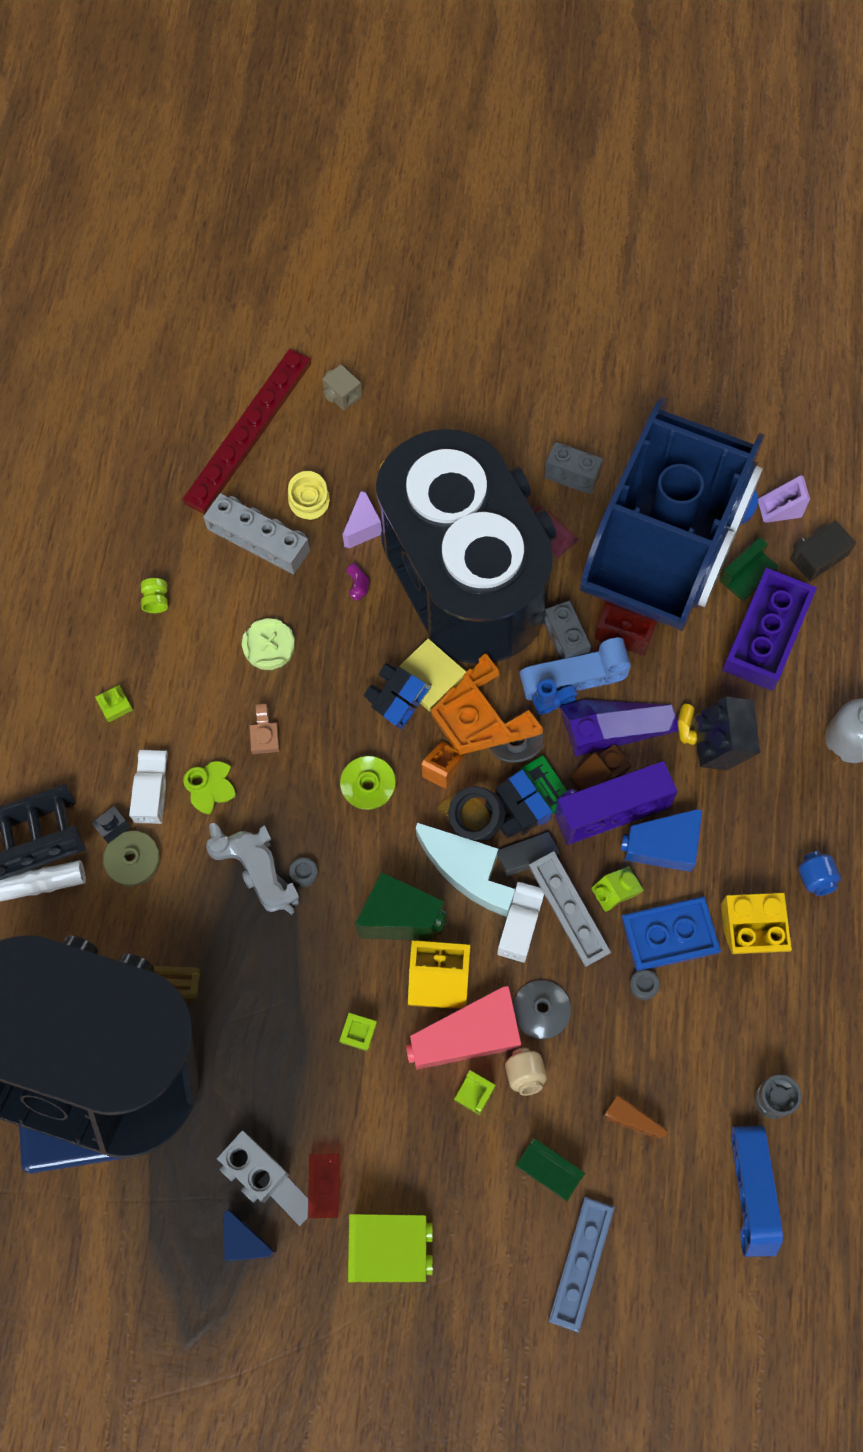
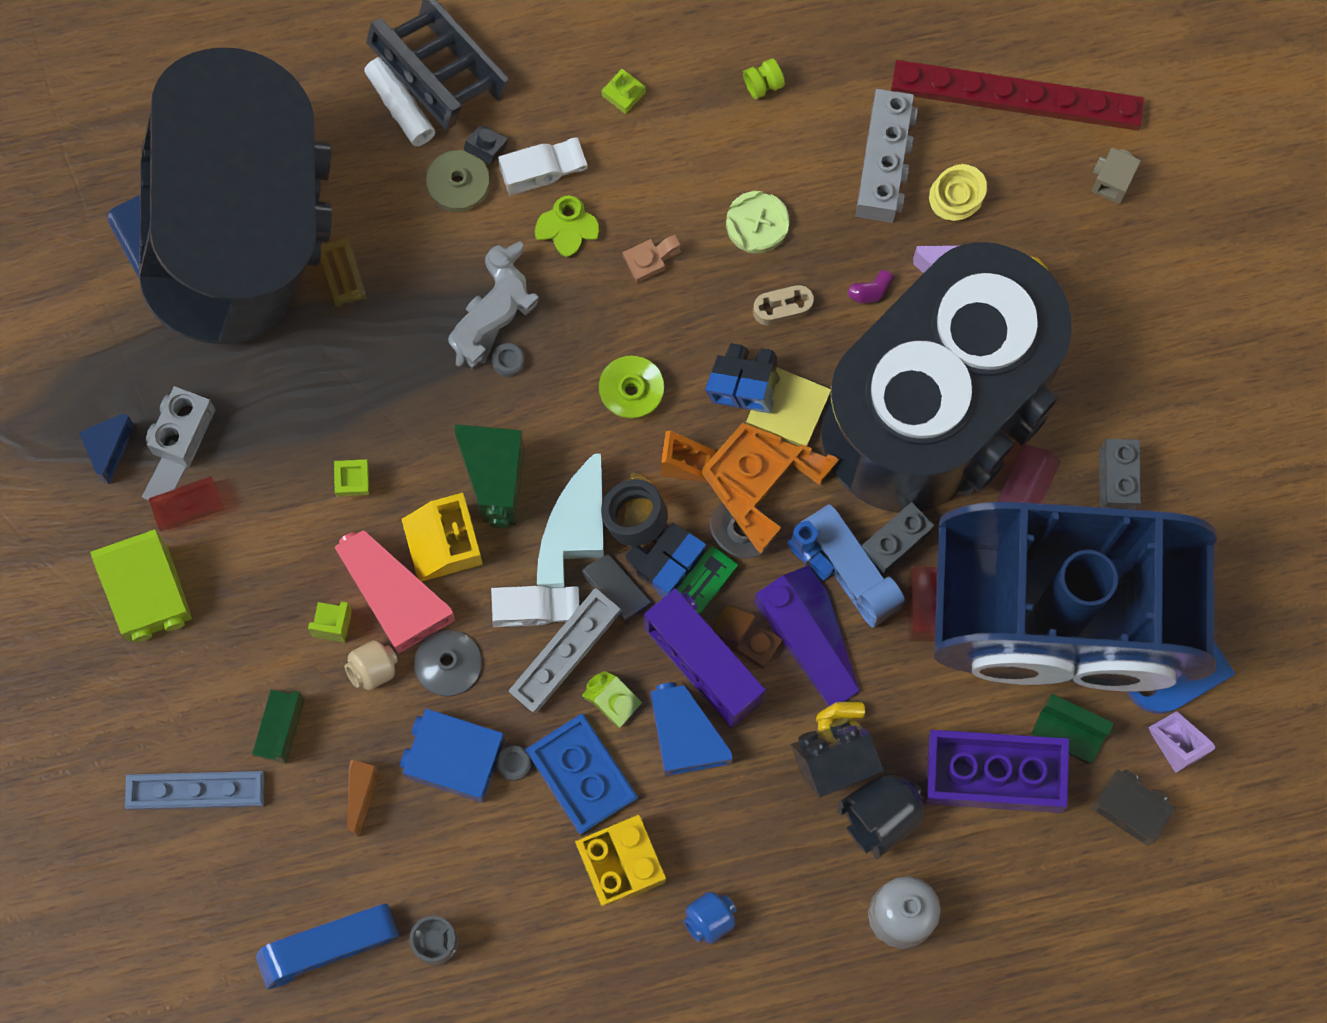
camera: 65 degrees right, 5 degrees up
(339, 648) = (781, 298): none -> tan beam
(624, 1030) = (452, 755): none -> blue brick
(780, 718) = (883, 812): none -> black cylinder

